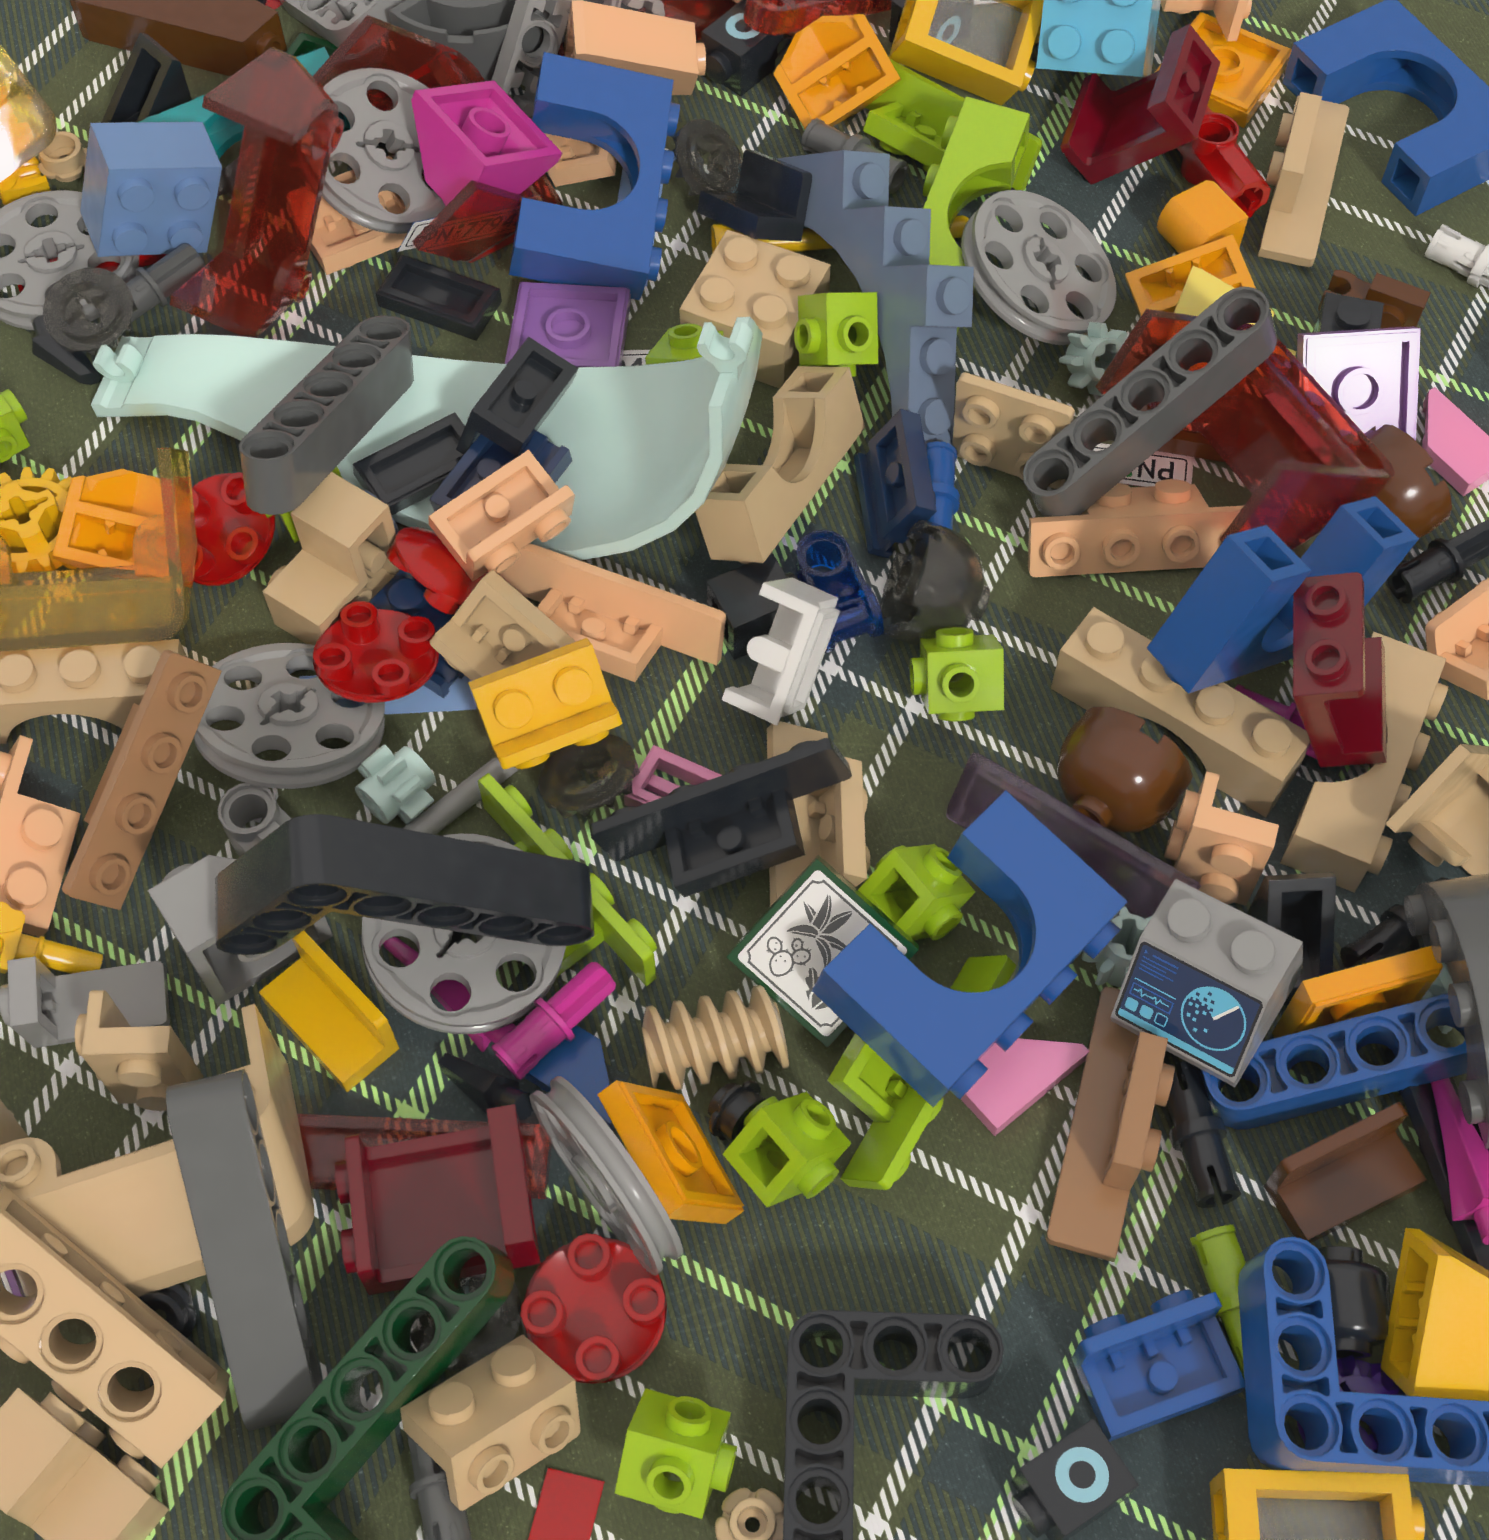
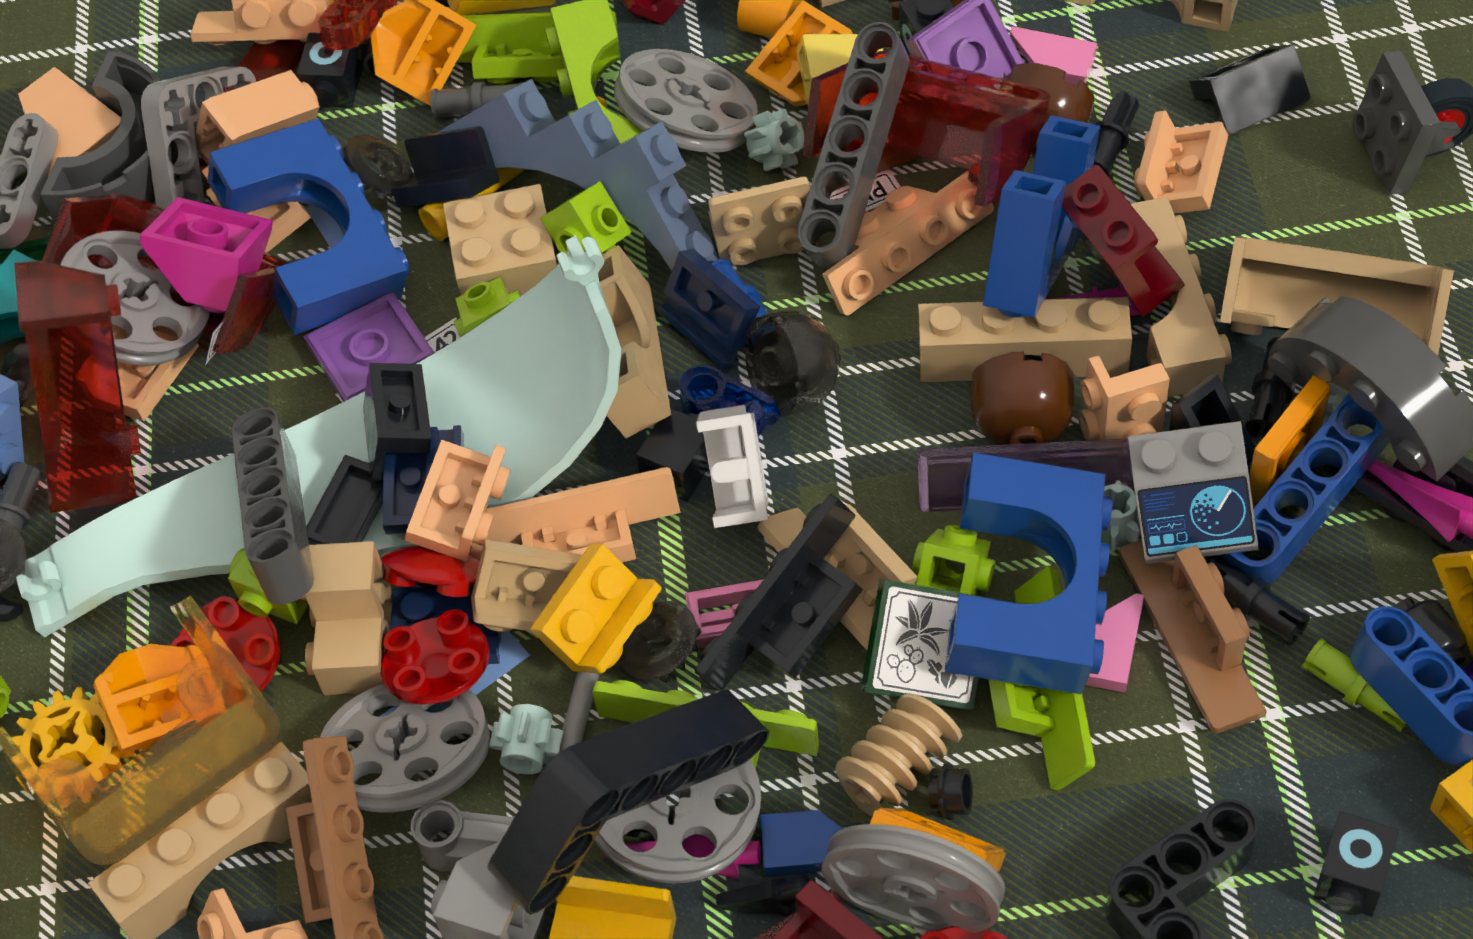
camera: 30 degrees left, 5 degrees down
(439, 297) = (246, 385): black tile -> none
(553, 1020) = (781, 815): dark pink axle -> none
(787, 1148) = (996, 797): lime brick -> none
(959, 674) = (860, 407): lime brick -> none
(1156, 1364) = (1345, 756): blue bracket -> none
(1344, 1176) = (1361, 564): reddish brown panel -> none

